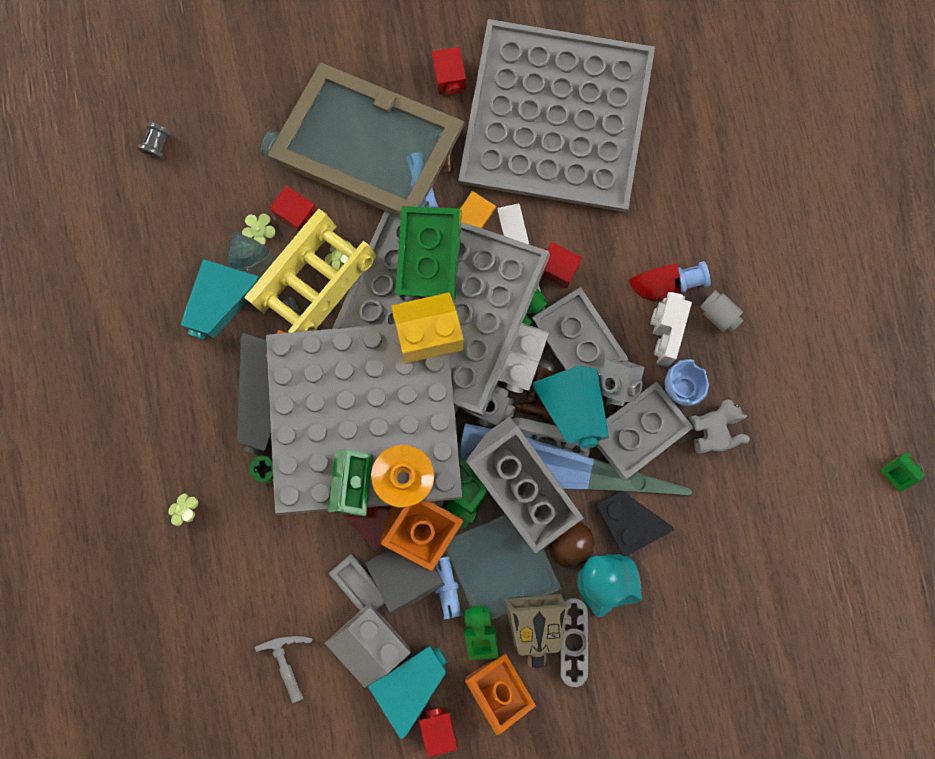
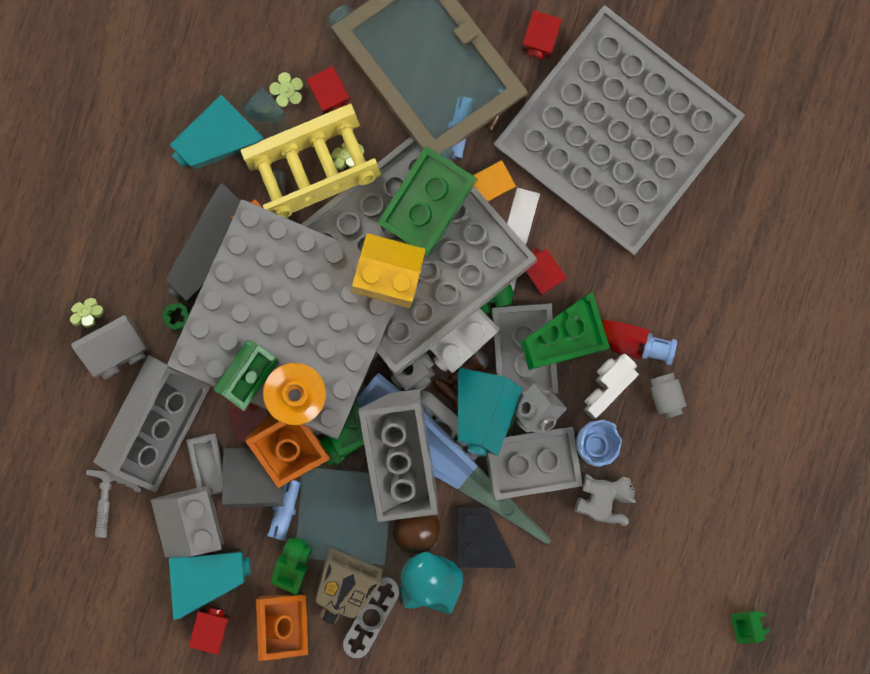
camera: 25 degrees right, 5 degrees up
(219, 526) = (112, 347): none -> light grey slope
(290, 576) = (151, 424): none -> light grey slope
(609, 306) = (567, 336): none -> green wing

